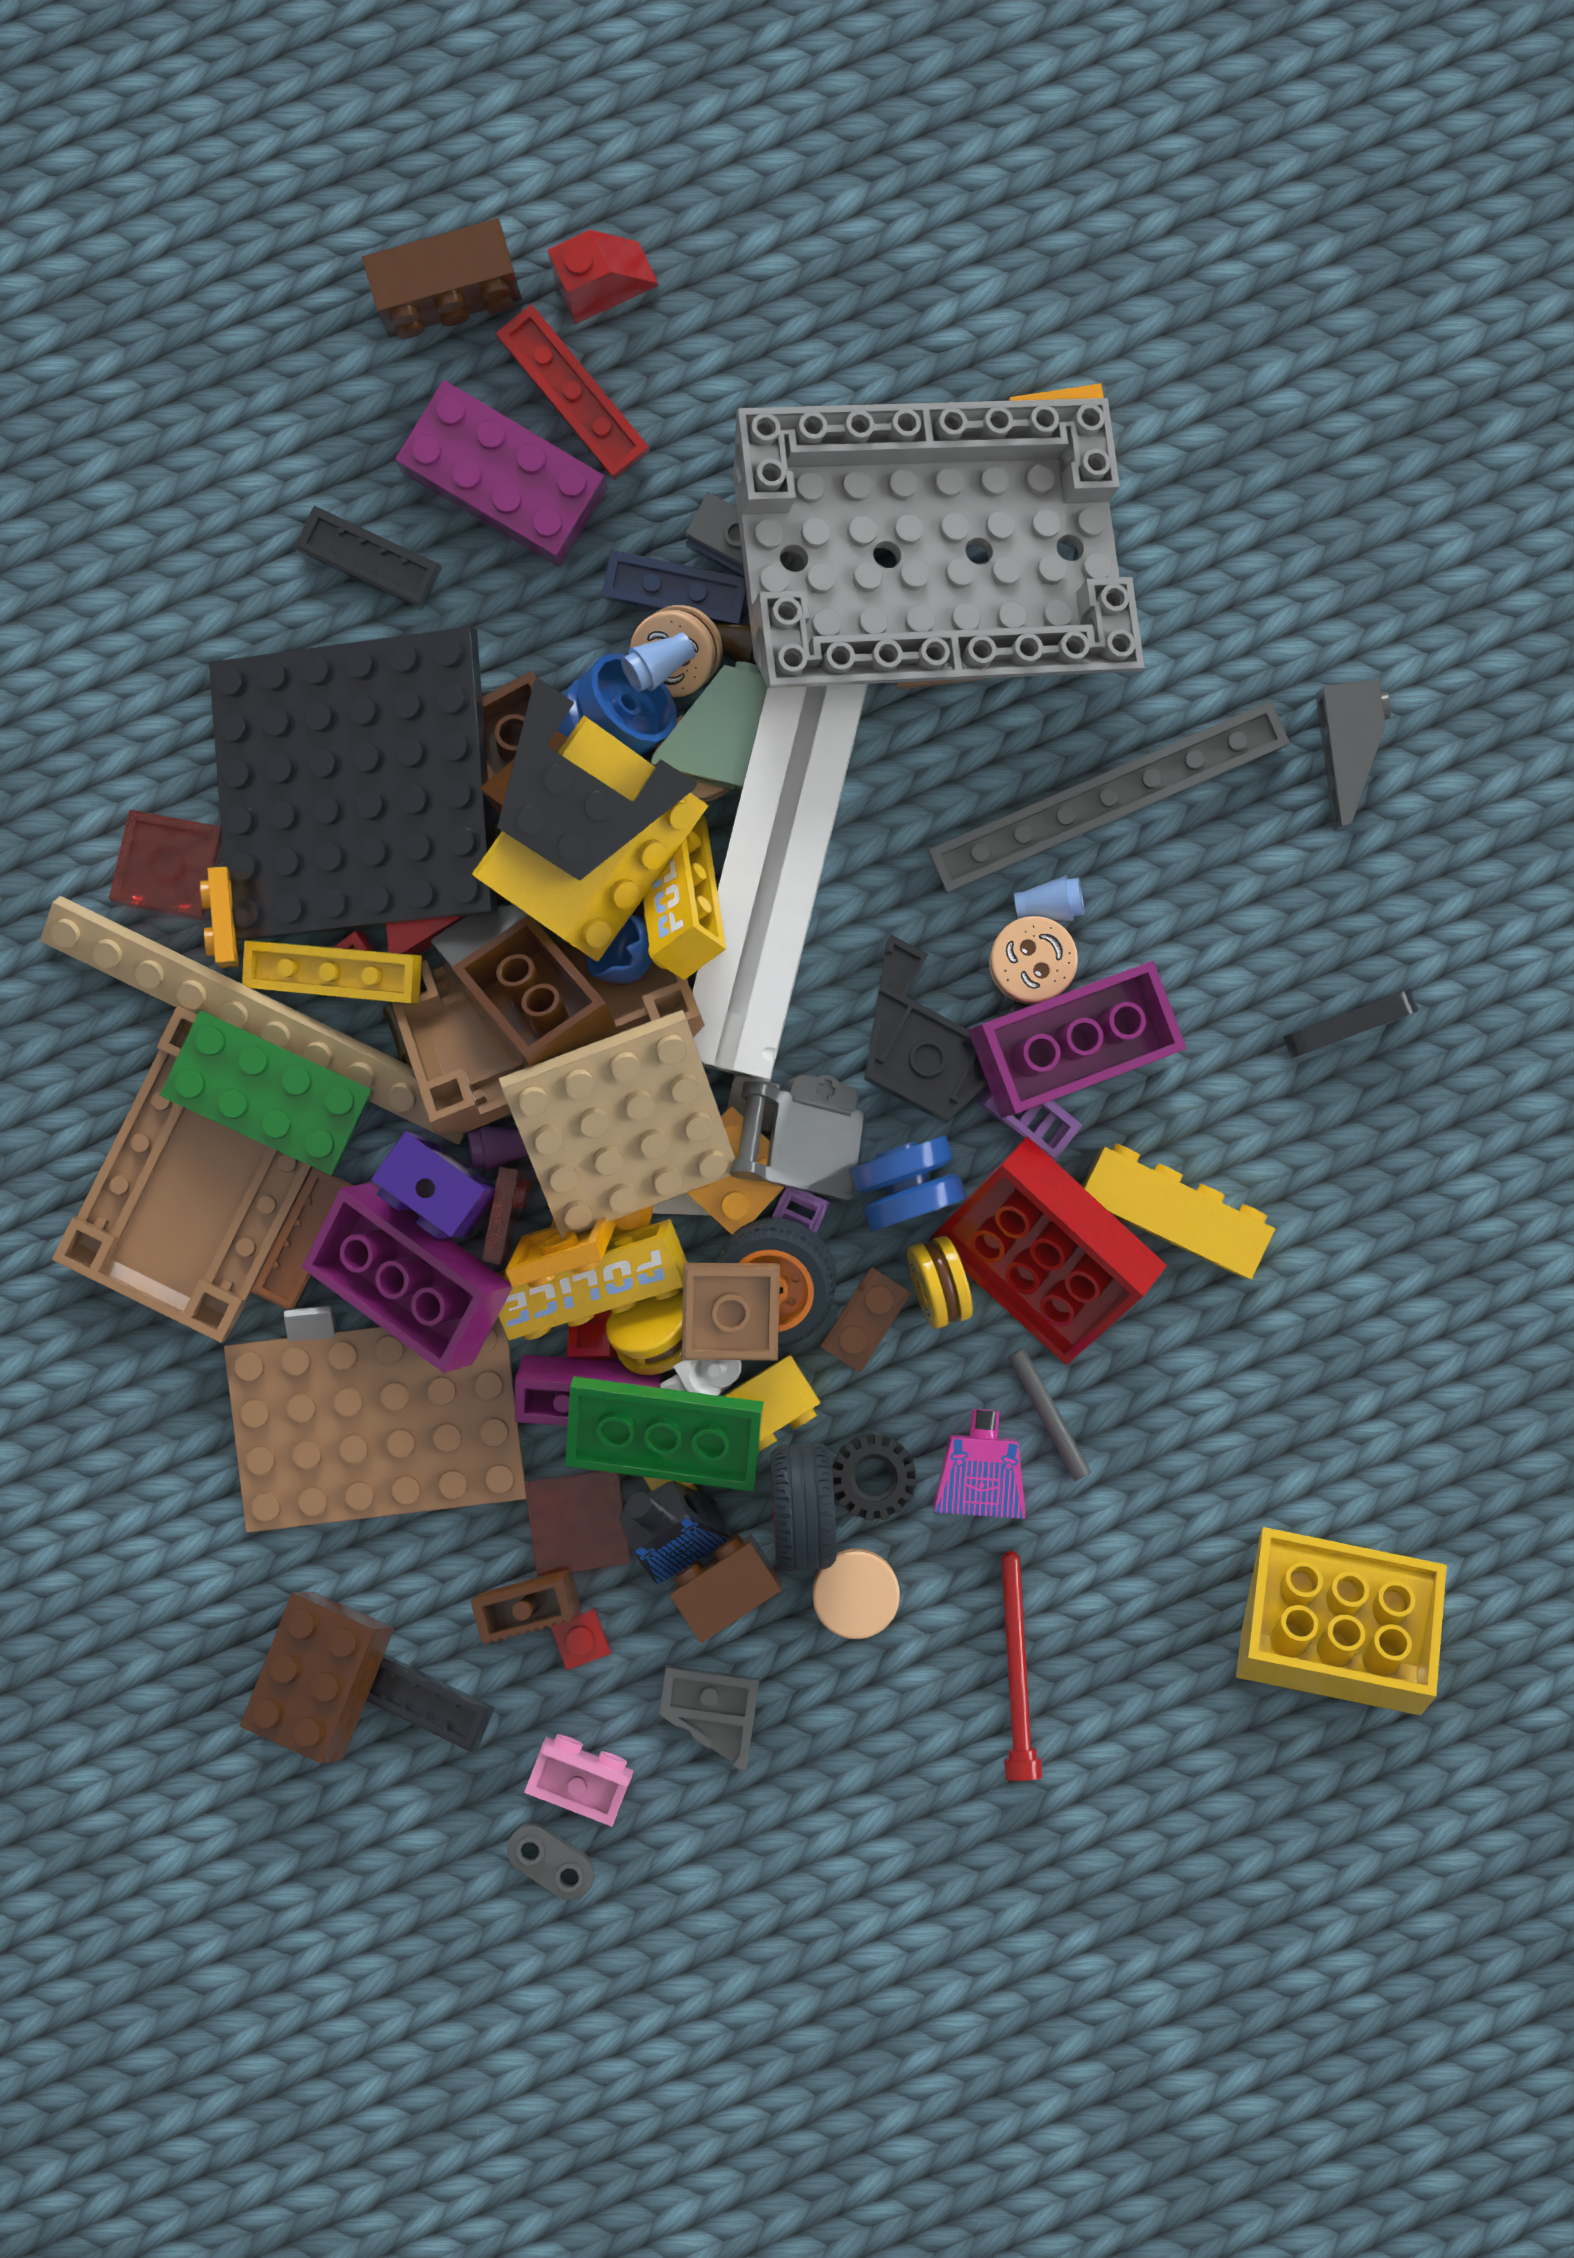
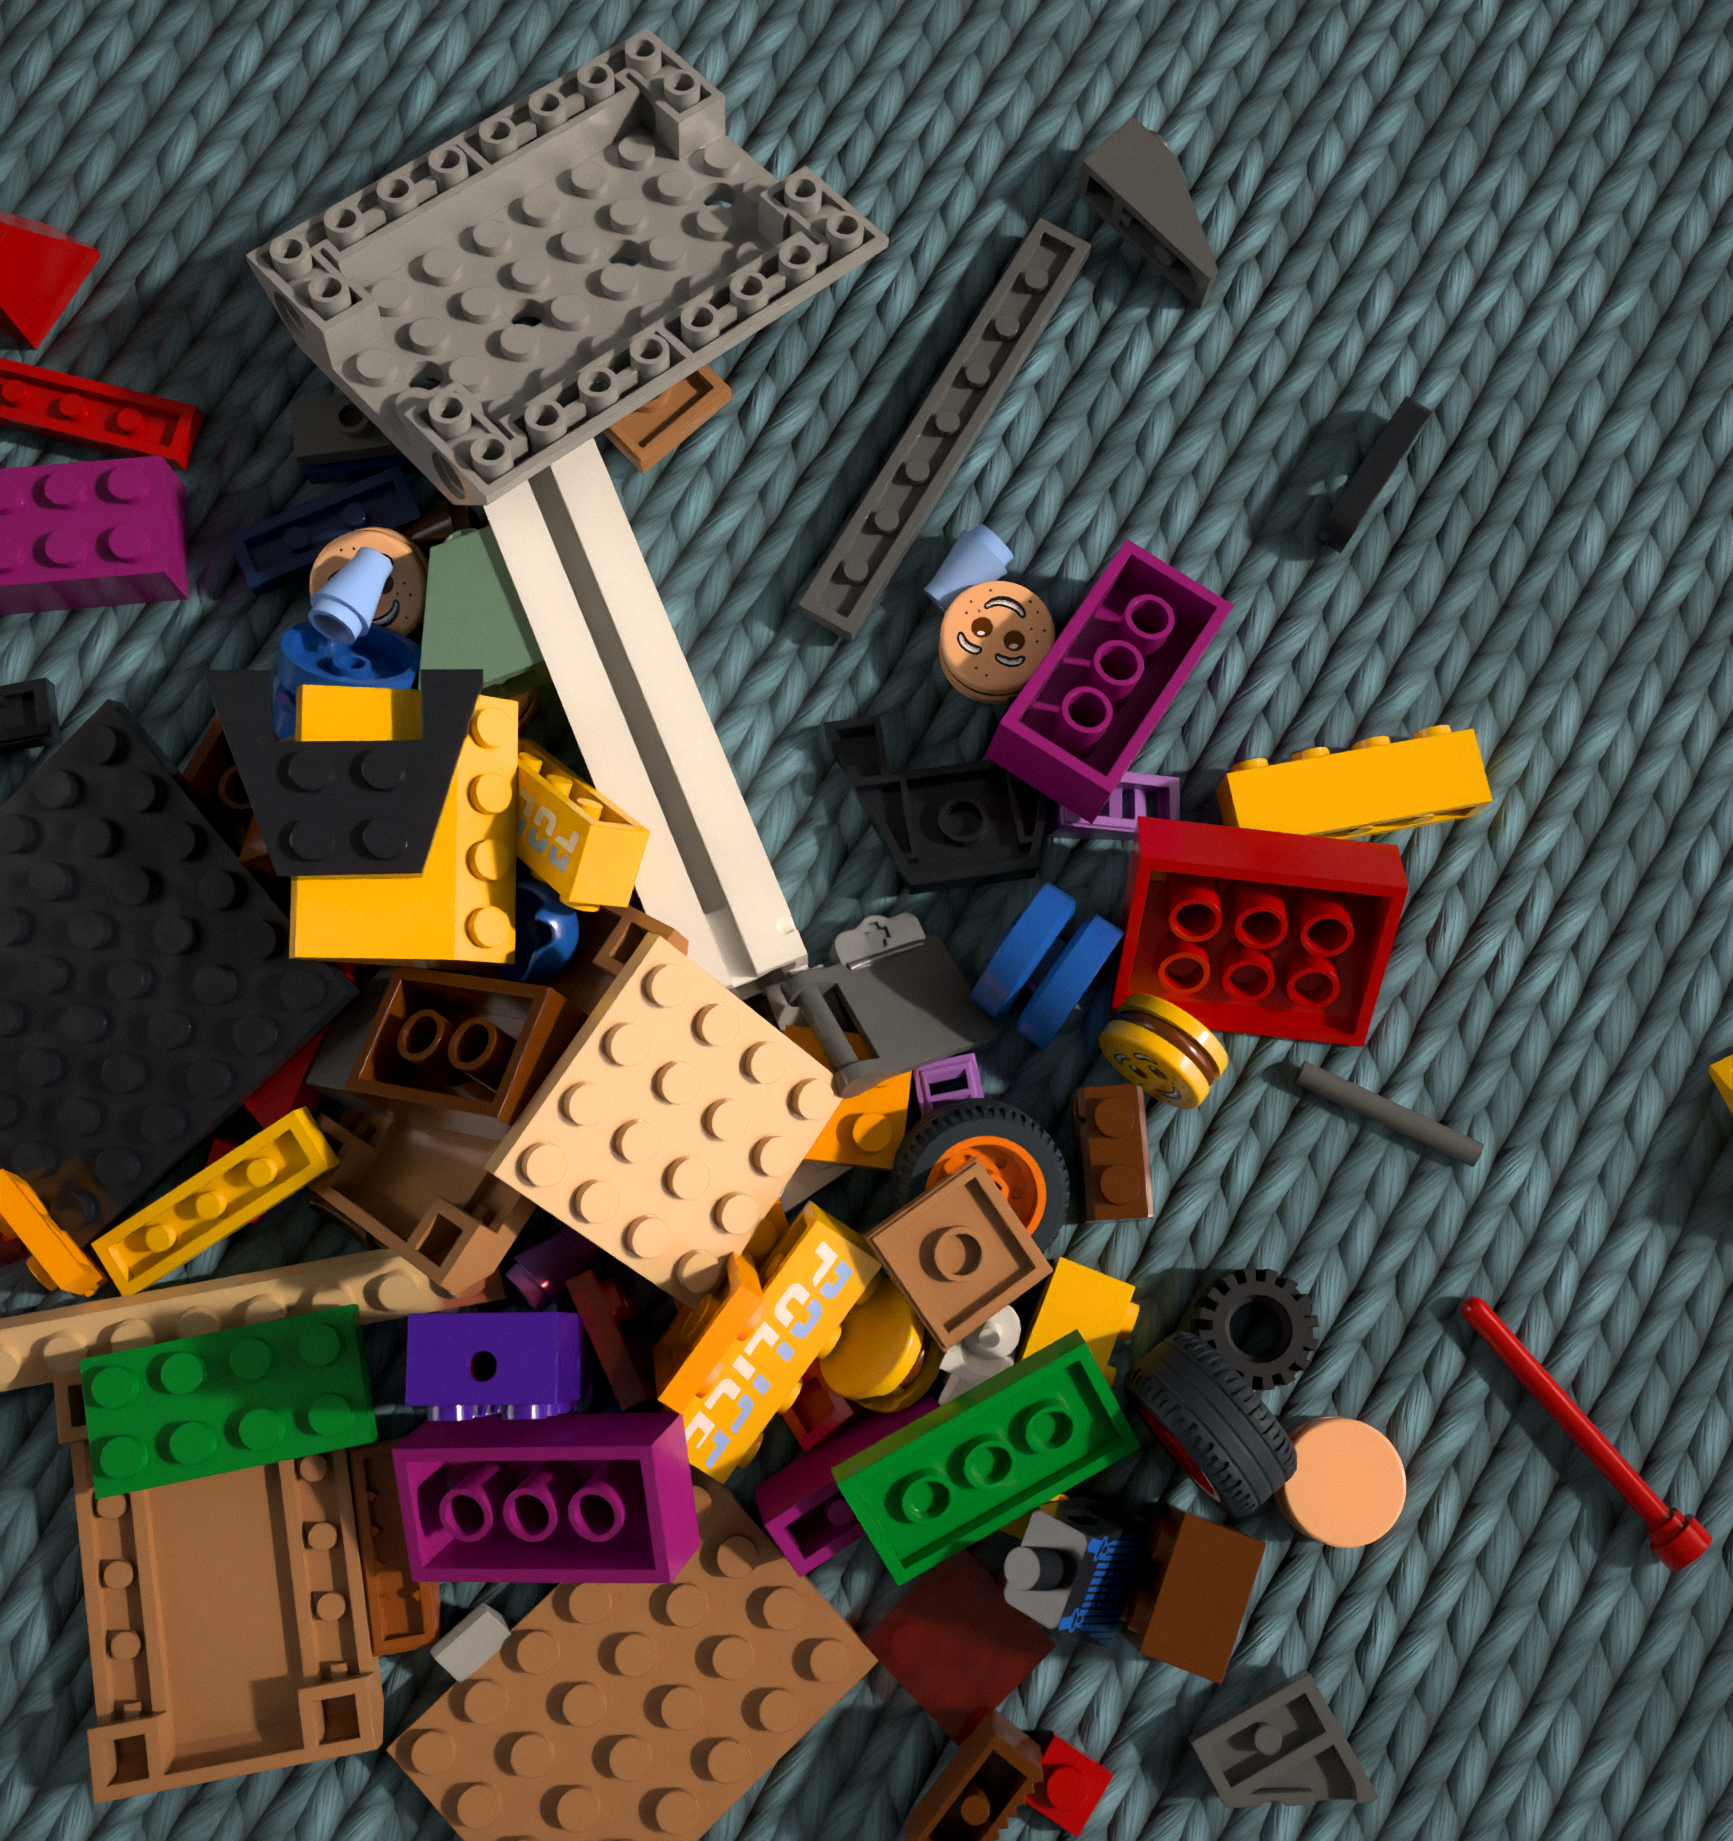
camera: 40 degrees left, 10 degrees down
(981, 1472) = (1369, 1233): torso -> none

